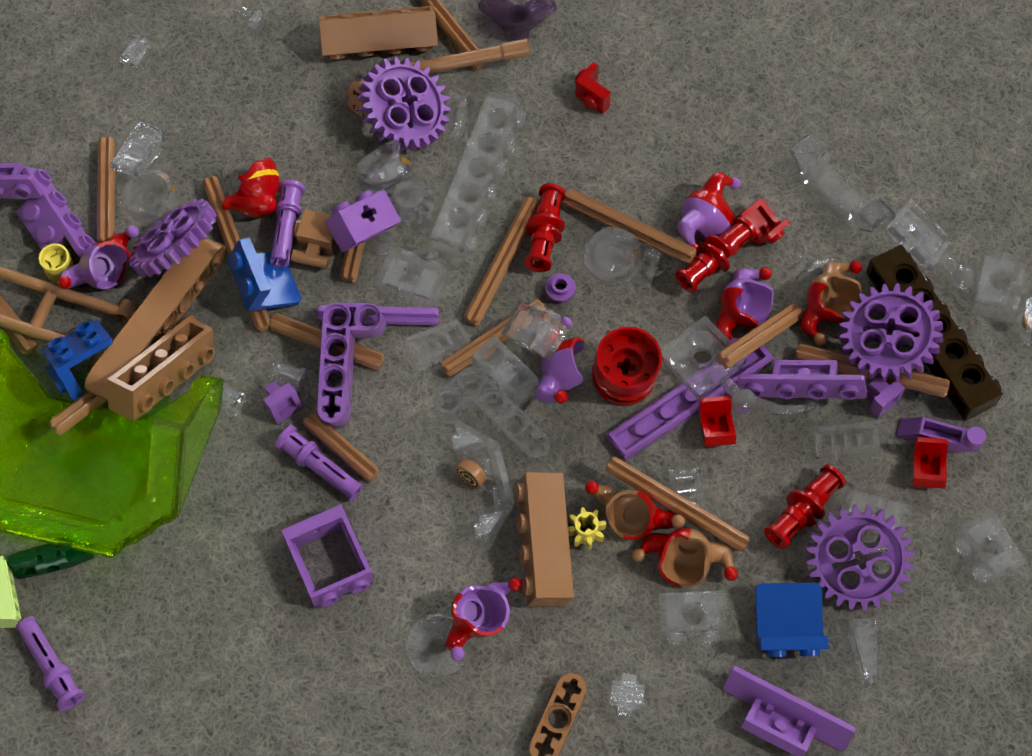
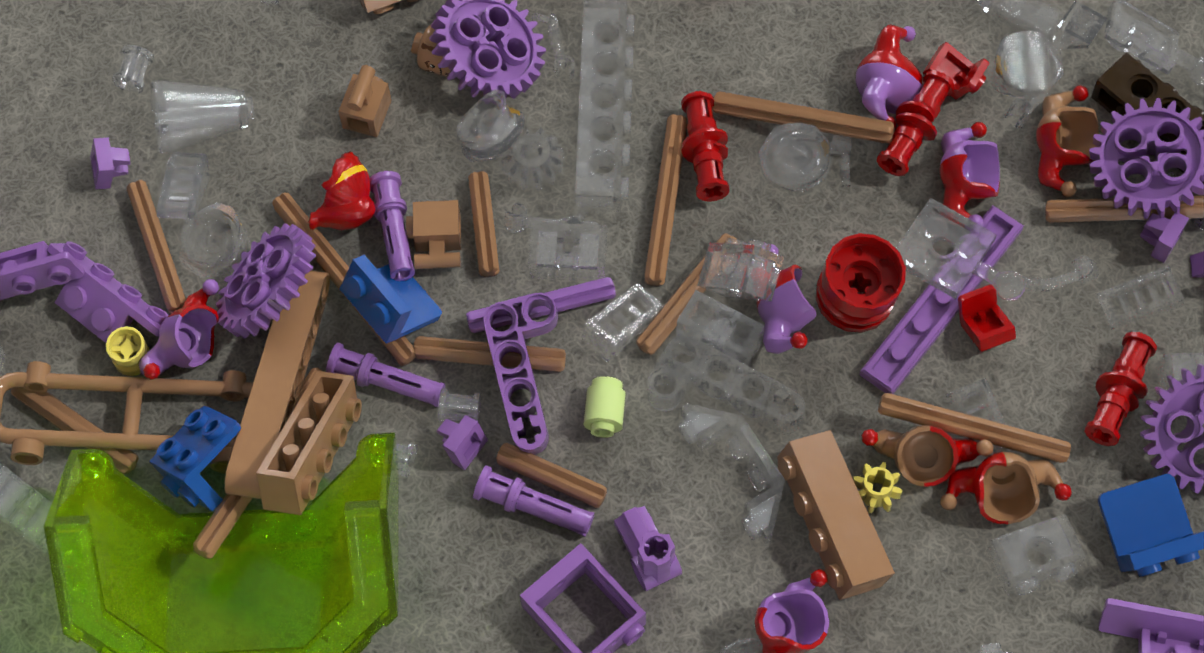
camera: 15 degrees left, 0 degrees up
(91, 117) = (107, 162): none -> medium lavender tile
(167, 97) = (196, 113): none -> clear cone
(231, 324) = (364, 372): none -> medium lavender pin
(297, 124) = (365, 103): none -> medium nougat brick
(362, 220) = (488, 196): medium lavender brick -> none
(392, 527) = (650, 552): none -> medium lavender piece
(398, 406) = (604, 407): none -> yellowish green brick
(470, 473) = (718, 462): medium nougat tile -> none
(560, 295) = (743, 221): medium lavender plate -> none
(759, 335) = (1001, 204): medium nougat axle -> none
(805, 380) = (1072, 240): medium lavender bracket -> none
(820, 233) = (1025, 65): none -> clear hat

